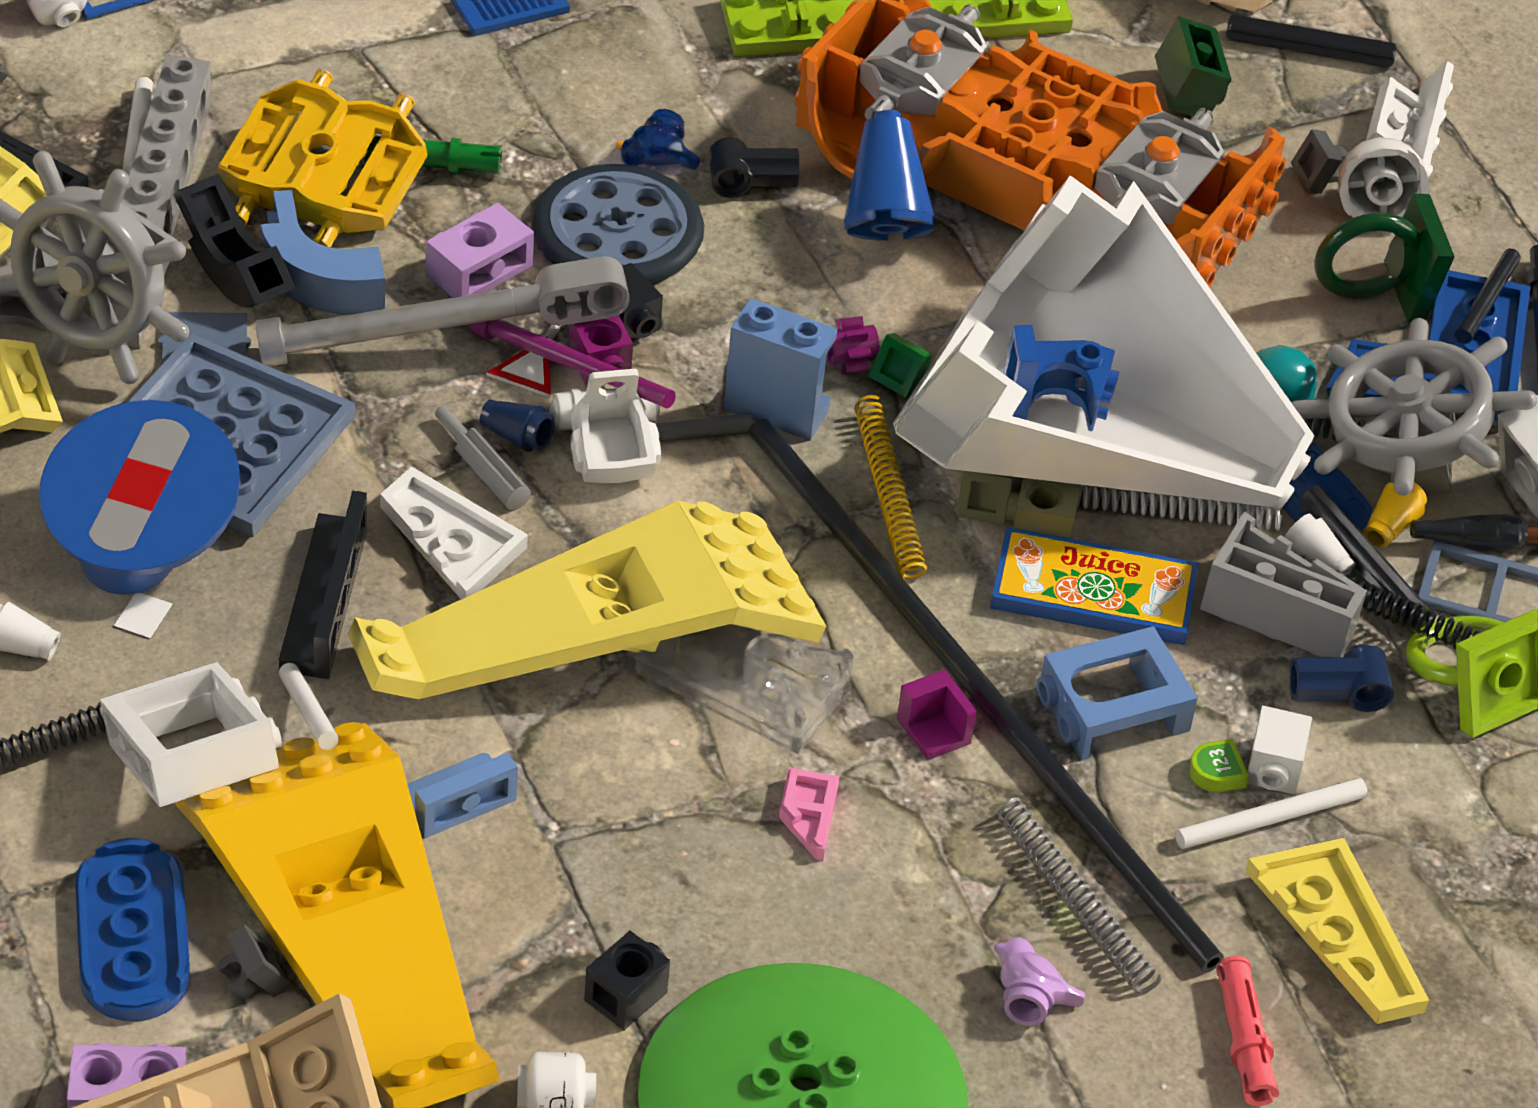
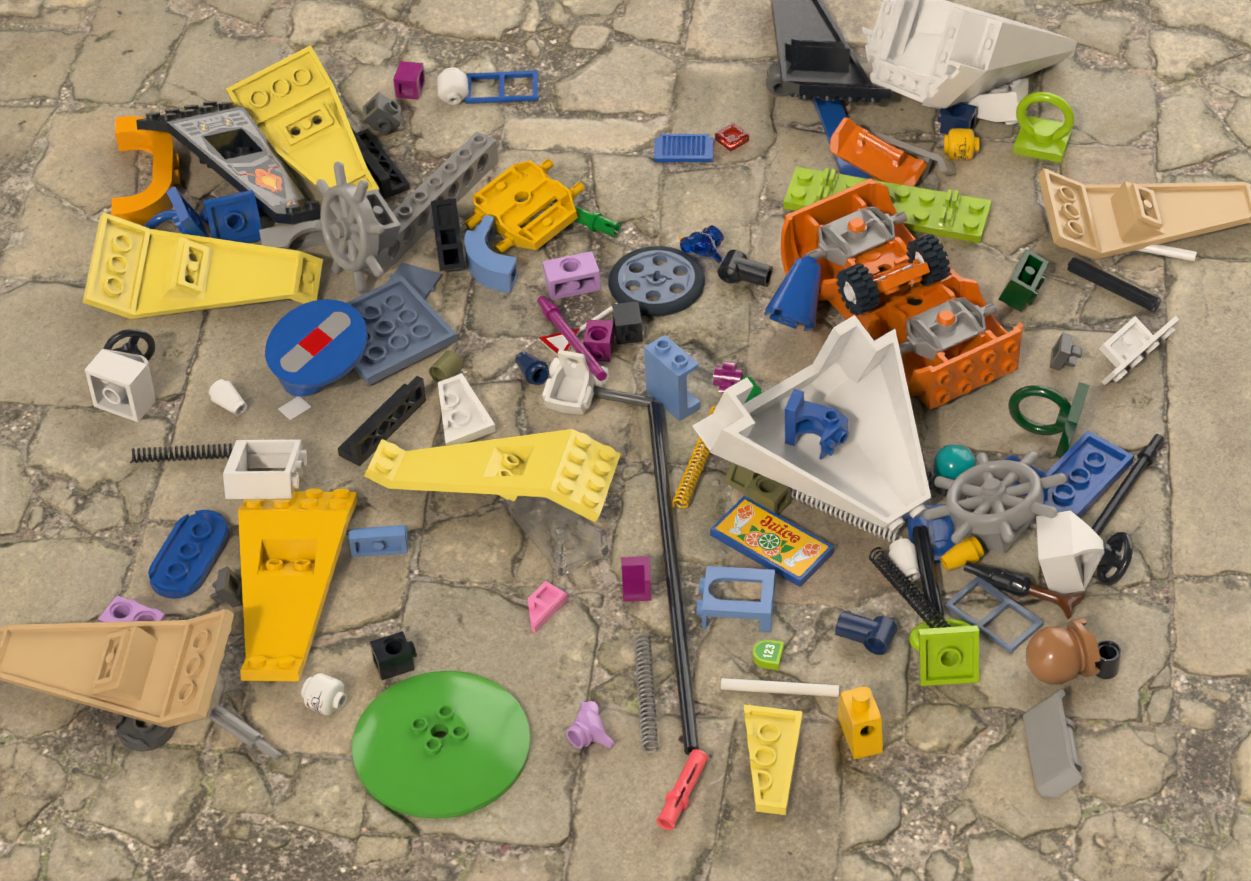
camera: 35 degrees right, 0 degrees up
(308, 706) = (331, 474): white bar -> none
(373, 464) = (446, 366): none -> olive beam
(485, 462) = (504, 385): light grey axle -> none
(561, 293) = (587, 308): piece -> none
(1080, 75) = (925, 265): none -> black plate
(1278, 749) = (802, 656): white brick -> none
(1282, 594) = (859, 573): light grey wedge -> none
(1381, 177) = (1085, 366): white cylinder -> none
(1444, 821) = (858, 711): none -> yellow torso
(1487, 296) = (1100, 452): black bar -> none

